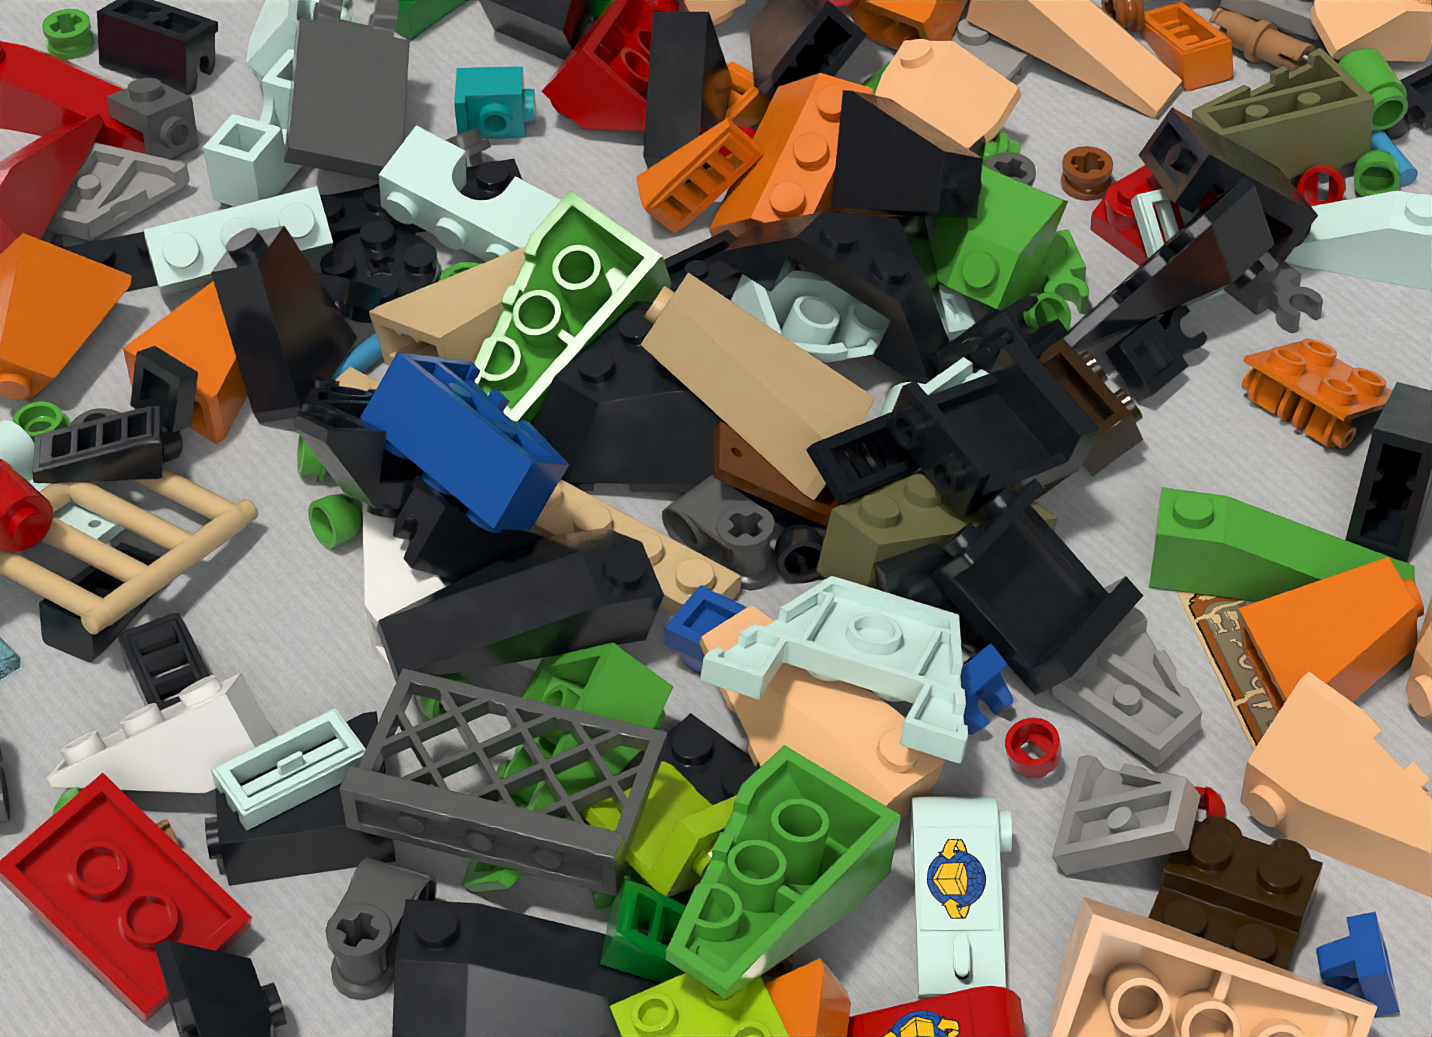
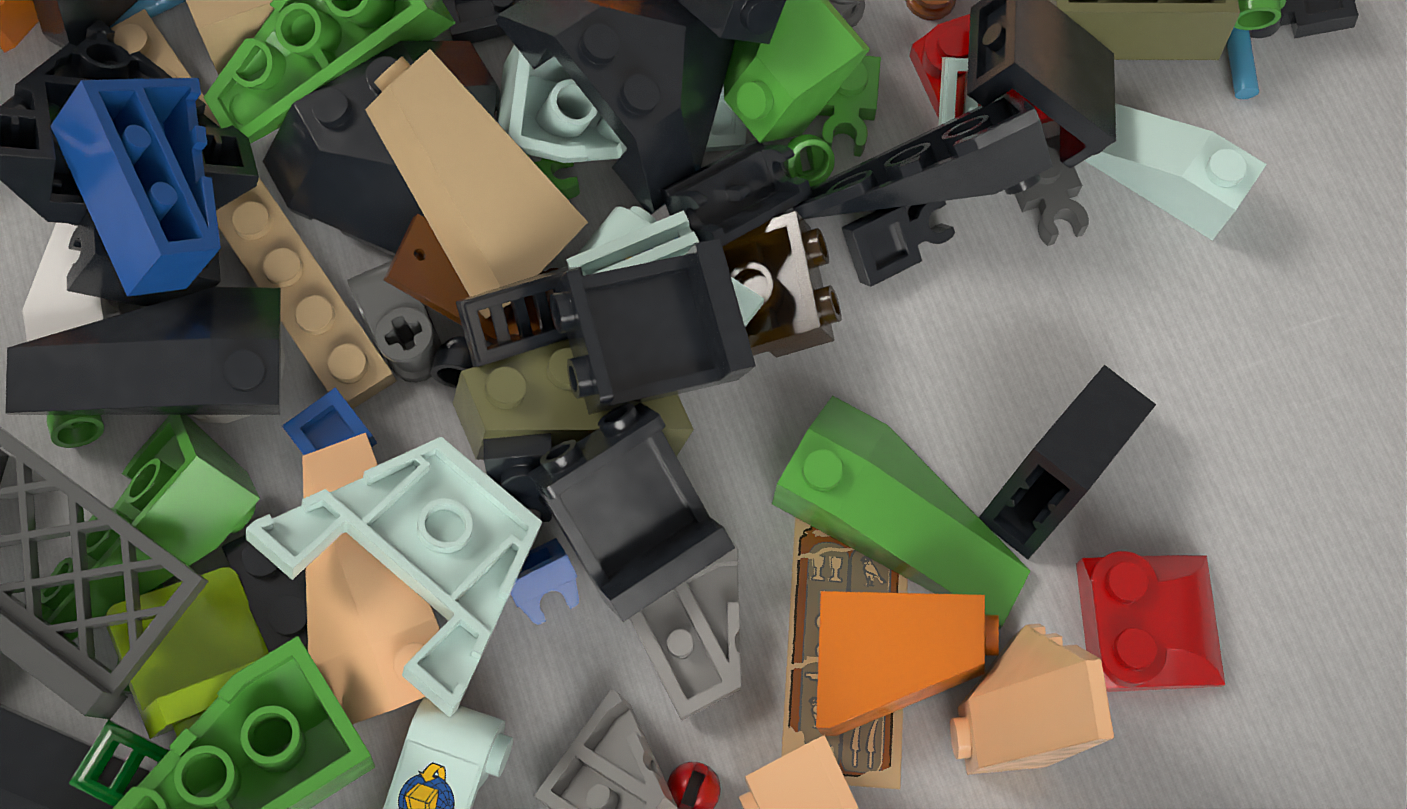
camera: 15 degrees right, 25 degrees up
(1043, 740) = (558, 671): red hinge -> none
(1310, 184) = (1142, 77): red hinge -> none
(1314, 389) = (1038, 328): orange hinge -> none
(1371, 175) = (1215, 84): bright green hinge -> none

